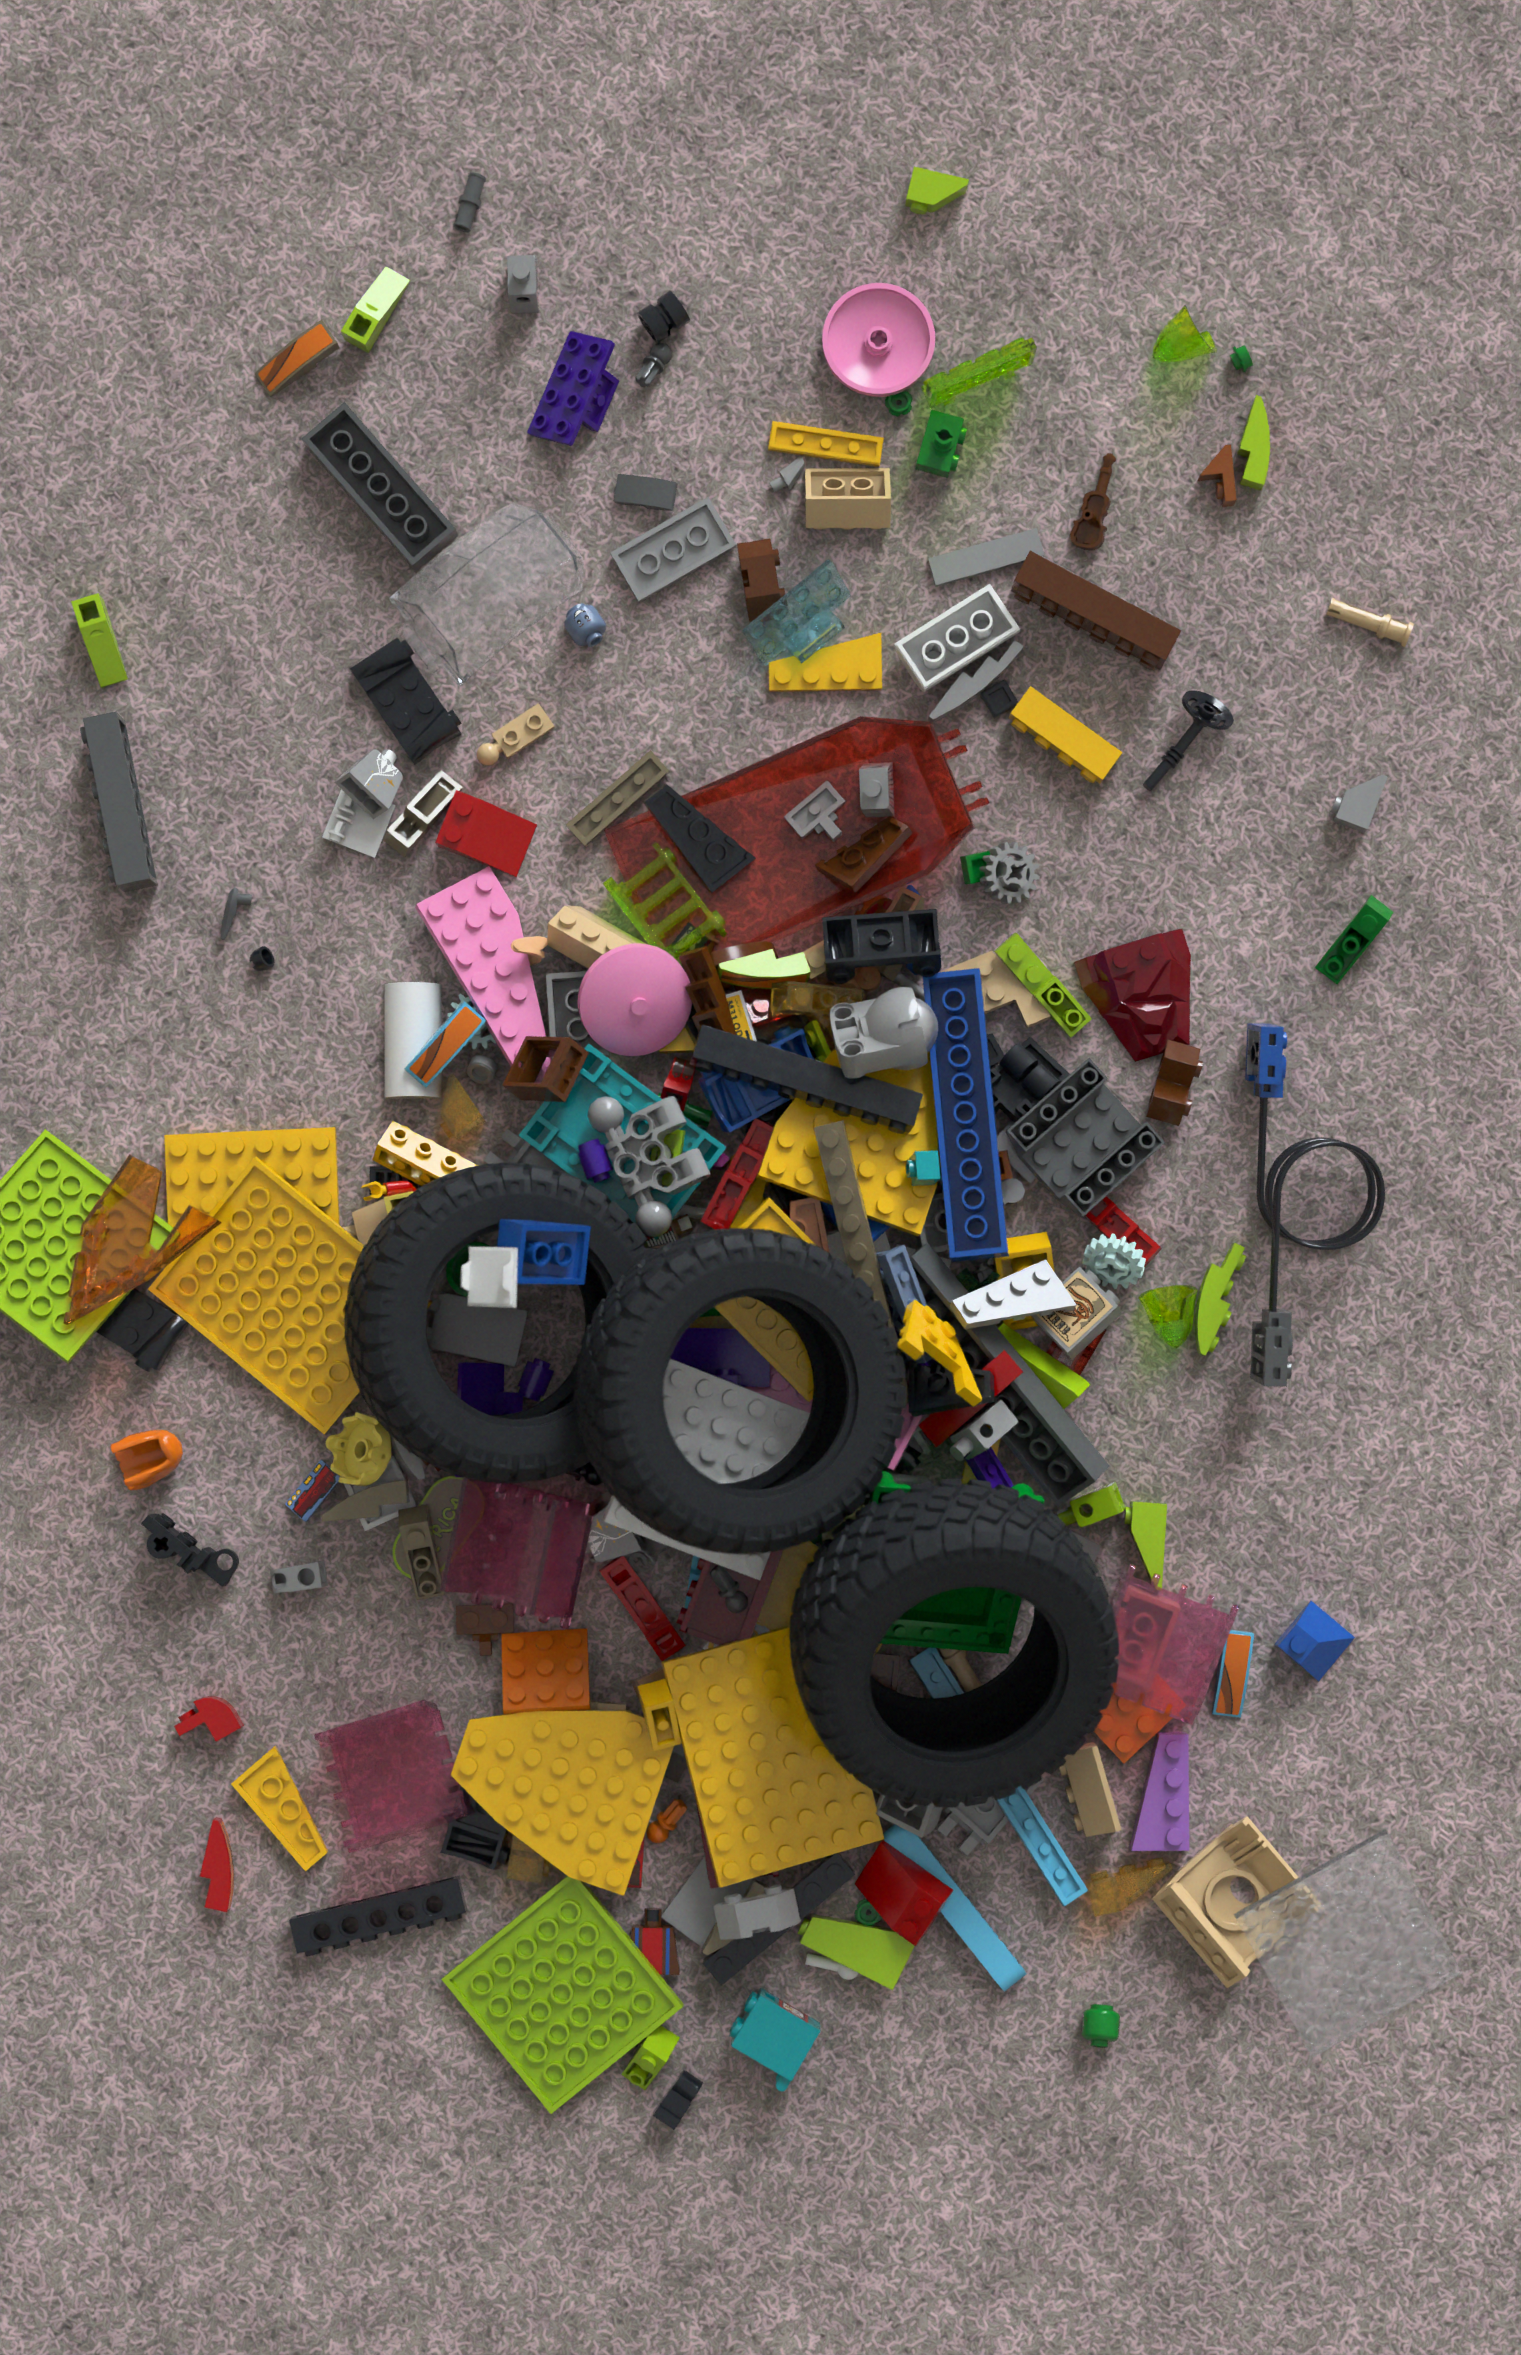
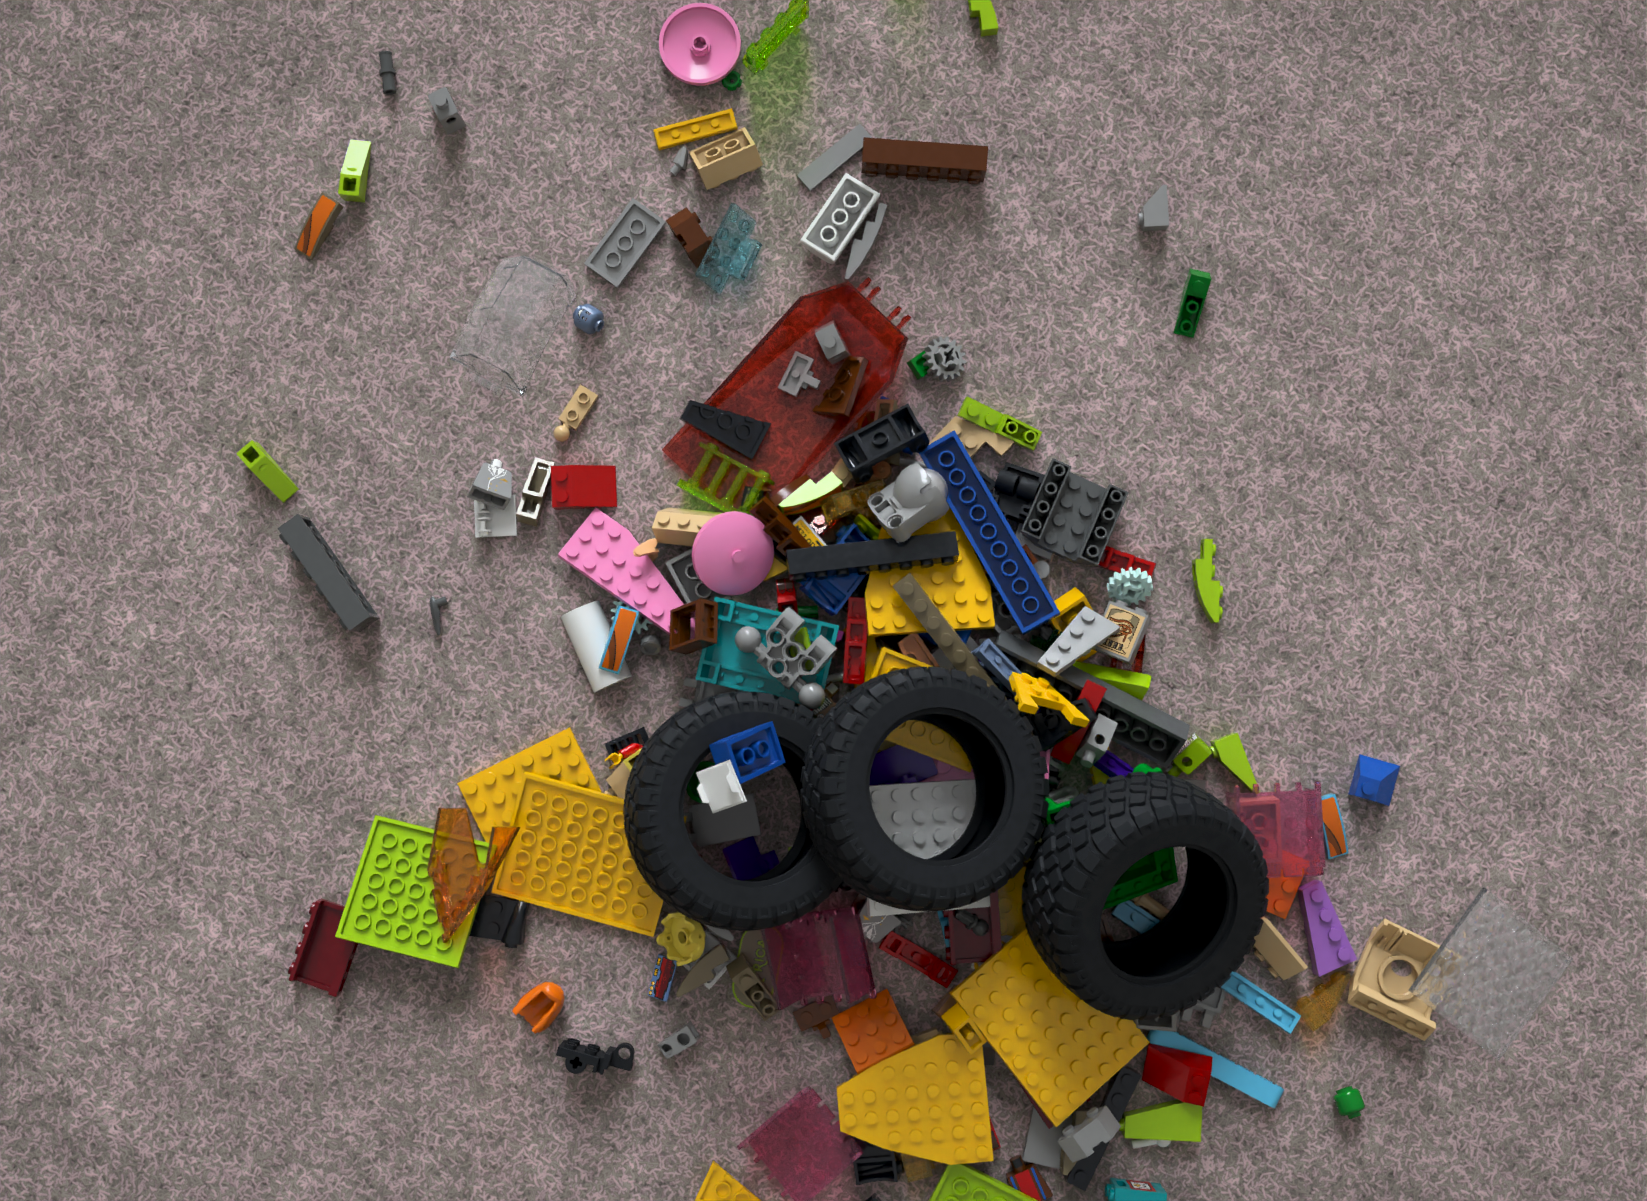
camera: 20 degrees left, 0 degrees up
(216, 1713) = (662, 1157): red brick -> none
(262, 959) = (471, 636): black hinge -> none
(379, 487) = (410, 286): dark grey brick -> none
(406, 700) = (491, 421): black piece -> none
(416, 1156) = (633, 723): yellow brick -> none
(459, 1111) = (647, 679): clear yellow slope -> none
(535, 1379) = (778, 836): dark purple brick -> none
(576, 390) = (514, 166): dark purple bracket -> none
(595, 1160) = (754, 674): dark purple brick -> none
(617, 798) = (661, 424): dark tan plate -> none
(645, 492) = (589, 212): dark grey slope -> none
(654, 364) = (557, 126): dark grey axle -> none
(659, 1830) = (998, 1094): orange axle -> none
(663, 317) = (550, 91): black wheel -> none
(838, 667) = (767, 274): yellow wing -> none
(861, 1916) = (1159, 1100): green plate -> none
(923, 1168) = (977, 580): teal plate -> none
(940, 443) = (771, 96): green brick -> none
(999, 698) = (885, 247): black tile -> none
(1064, 735) = (940, 251): yellow brick -> none
(1089, 529) = (895, 110): reddish brown piece -> none
(1142, 991) = (1067, 399): dark red wedge -> none
(1171, 1090) = (1114, 444): reddish brown brick -> none
(1171, 1312) = (1182, 597): clear neon green helmet -> none
(1206, 712) = (1027, 198): black dish -> none
(1222, 468) = (966, 31): dark orange slope -> none
(1272, 1336) = (1259, 591): piece -> none
(1383, 626) = (1118, 88): tan pin -> none

